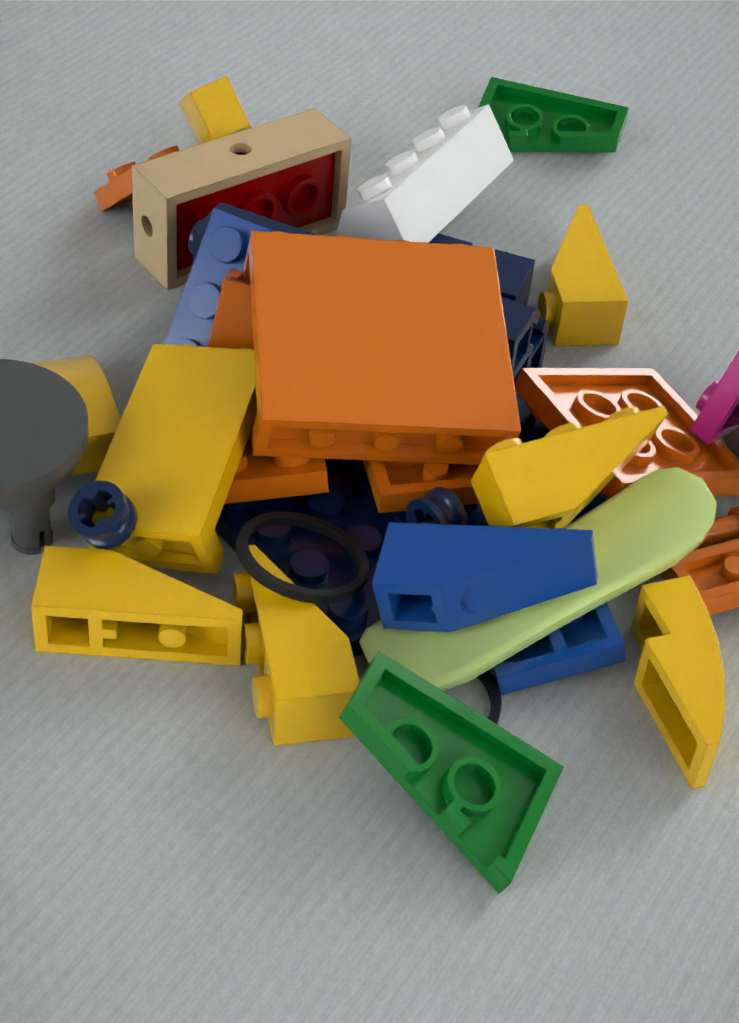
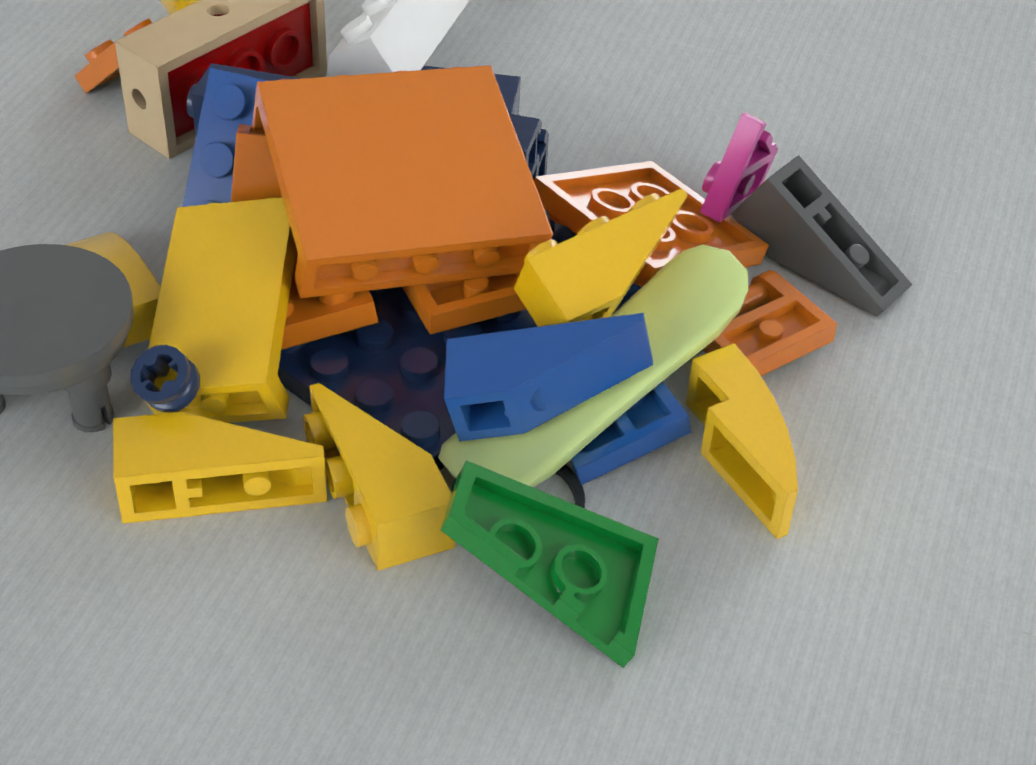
camera: 10 degrees left, 0 degrees up
(292, 591) = (359, 418): black piece -> none
(437, 507) = (486, 318): dark blue bush -> none
(583, 289) = (571, 97): yellow slope -> none

